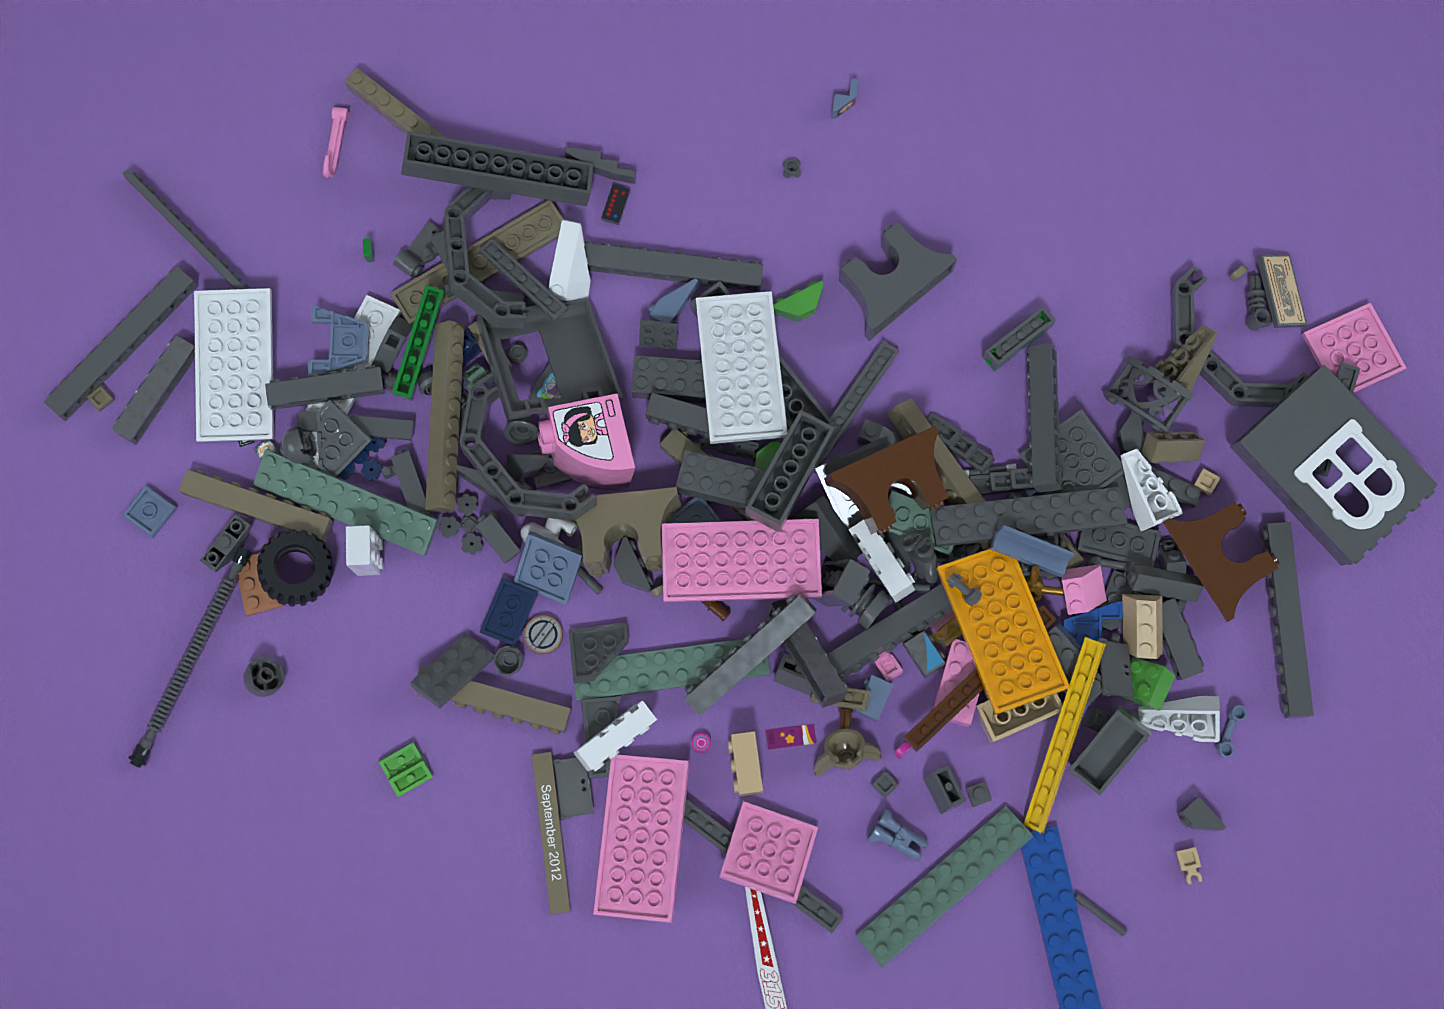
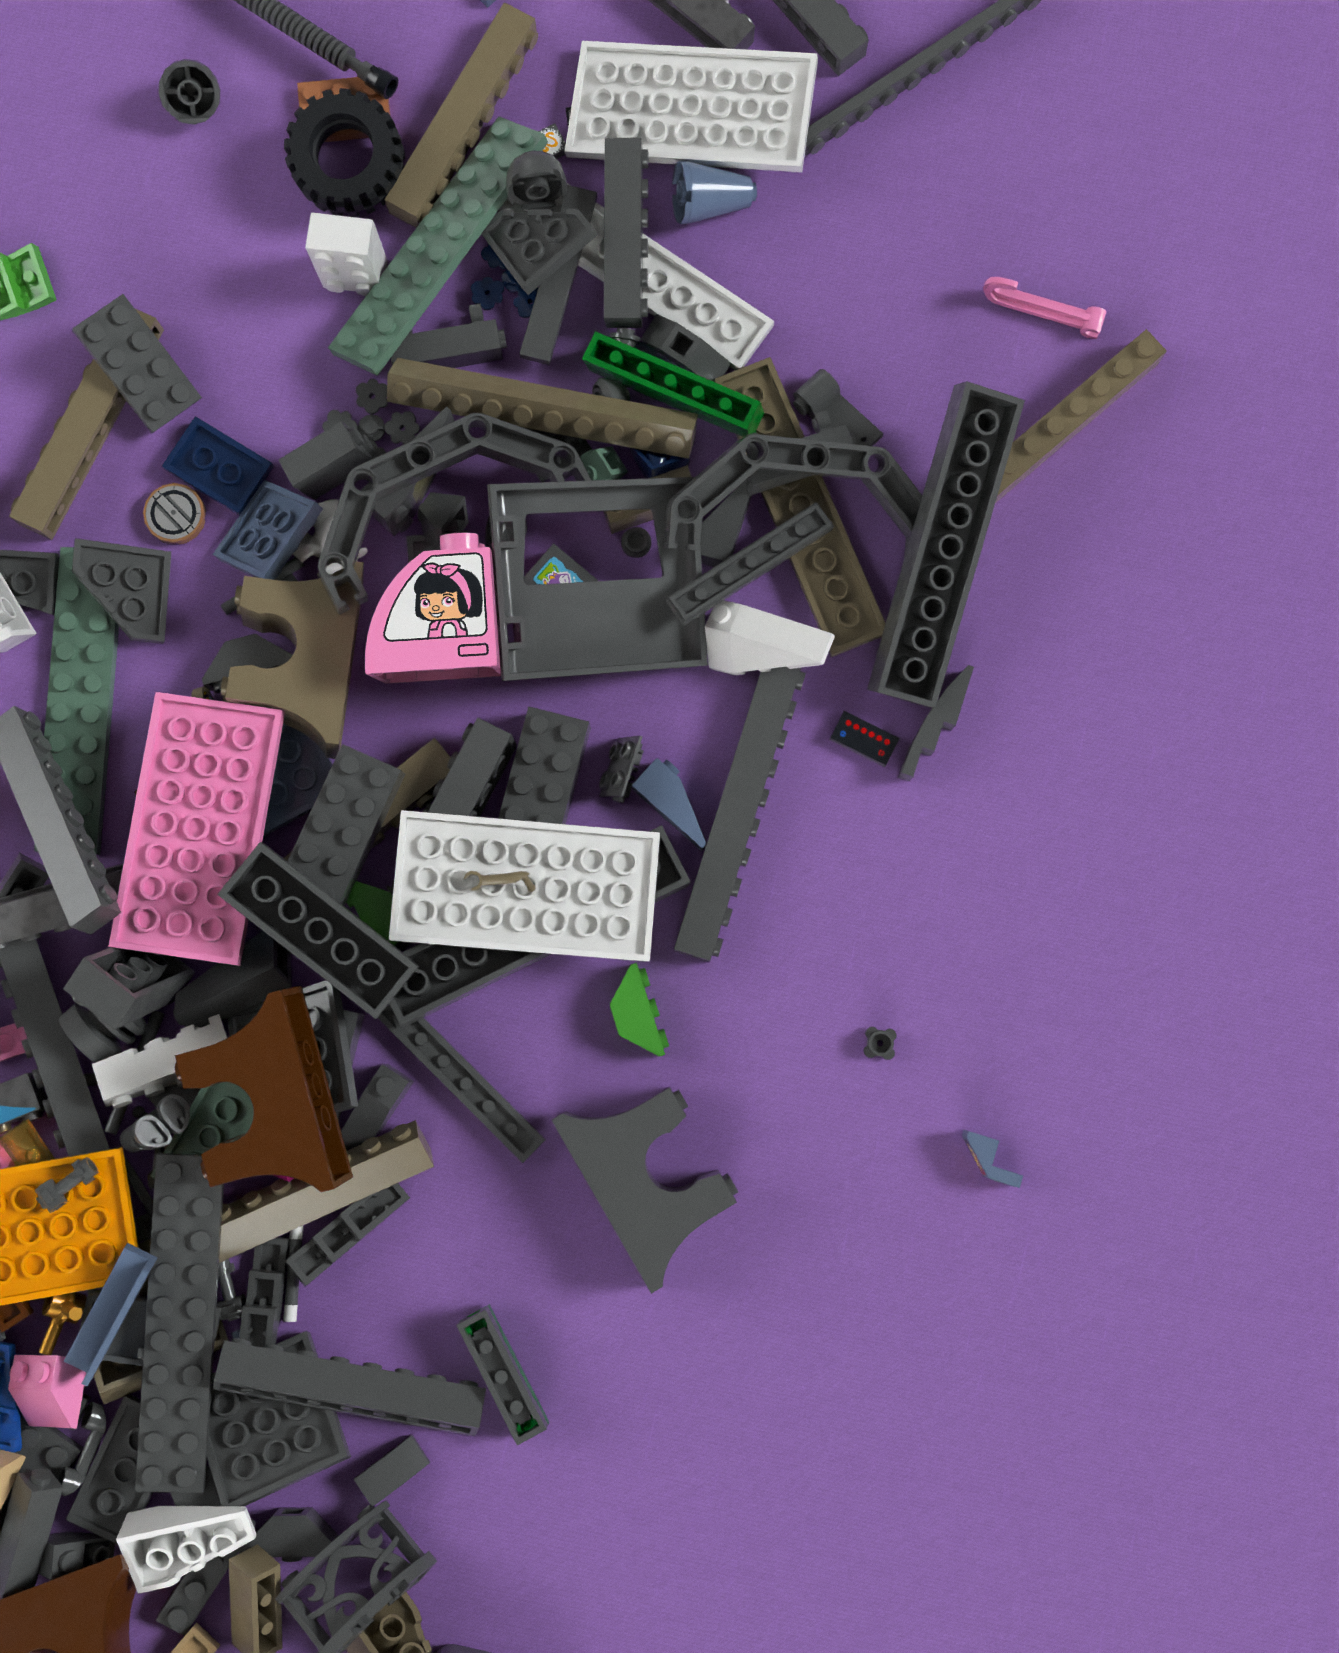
camera: 100 degrees right, 5 degrees up
(226, 544) = (404, 60): dark grey slope -> none
(289, 347) = (709, 192): none -> sand blue cone
(347, 341) = (699, 278): sand blue wing -> none
(368, 250) = (850, 334): green tile -> none
(508, 660) = (140, 453): dark grey hair -> none
(743, 386) = (501, 879): none -> dark tan piece
(1086, 392) = (392, 1470): none -> dark grey slope

